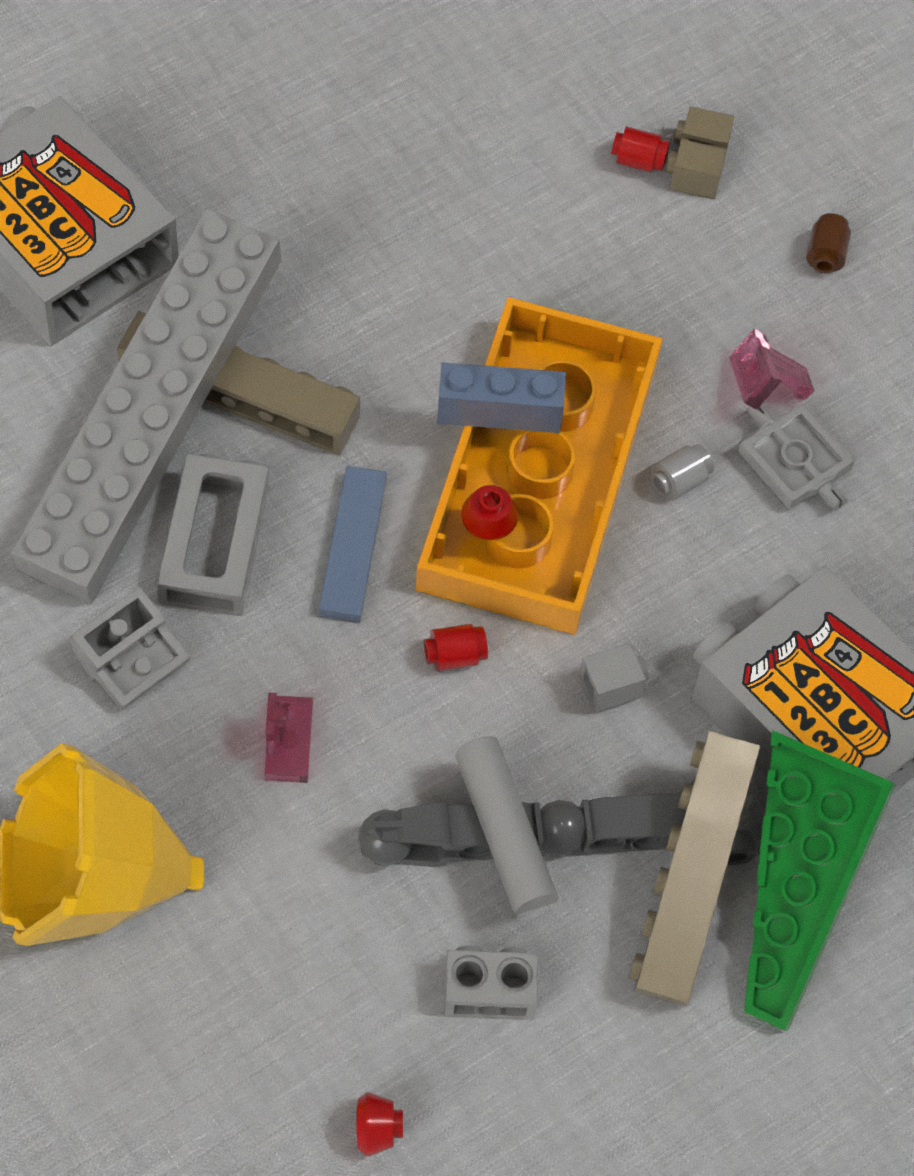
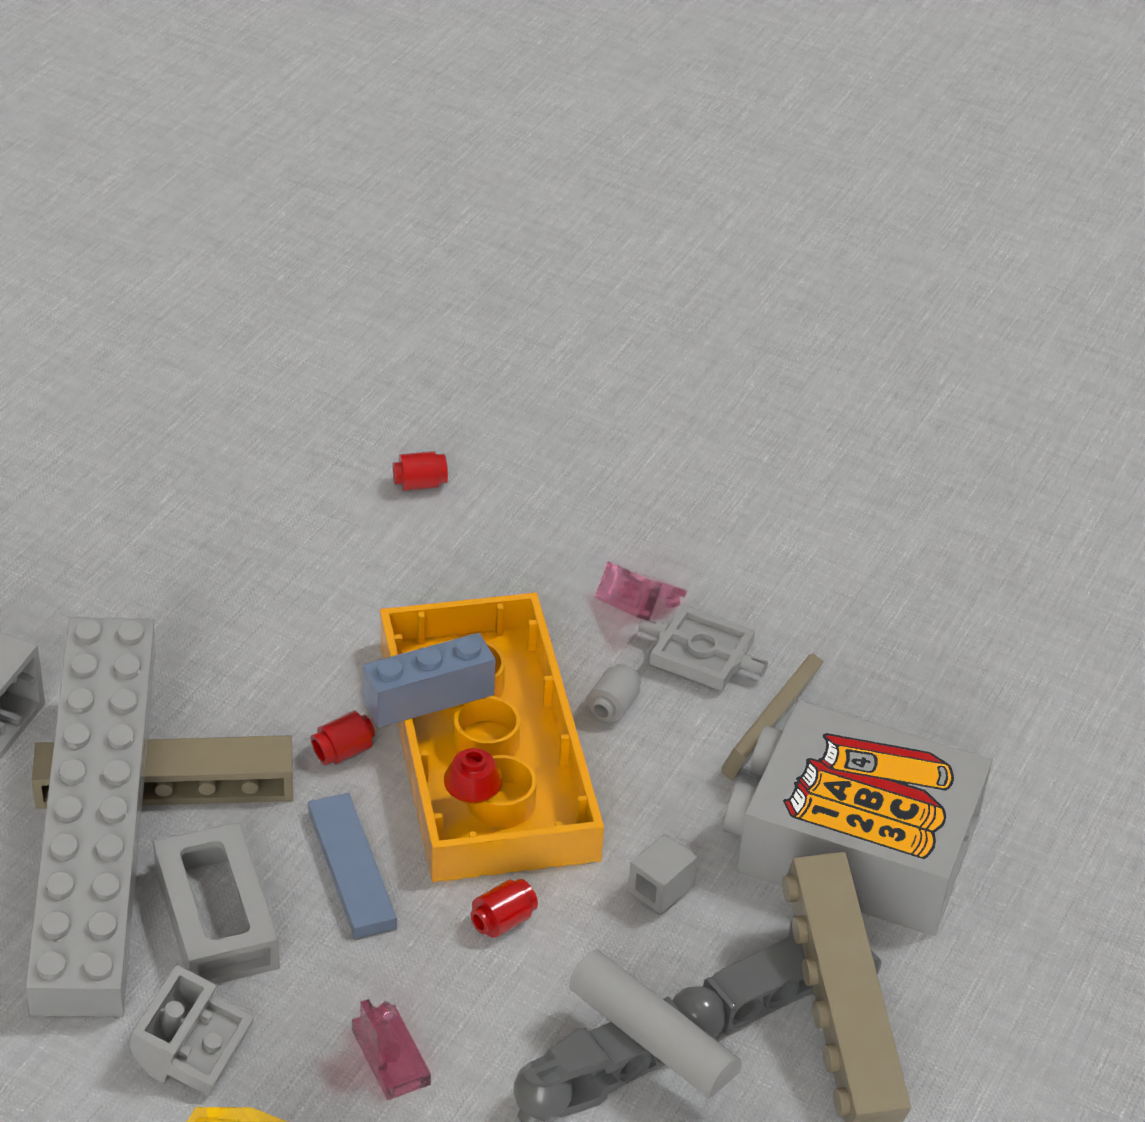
camera: 25 degrees left, 20 degrees down
(410, 414) = (343, 738): none -> red brick
(701, 152) = (473, 456): dark tan piece -> none
(810, 852) = (939, 925): green wing -> none
(817, 556) = (772, 715): none -> dark tan tile
(829, 243) = (624, 484): reddish brown brick -> none

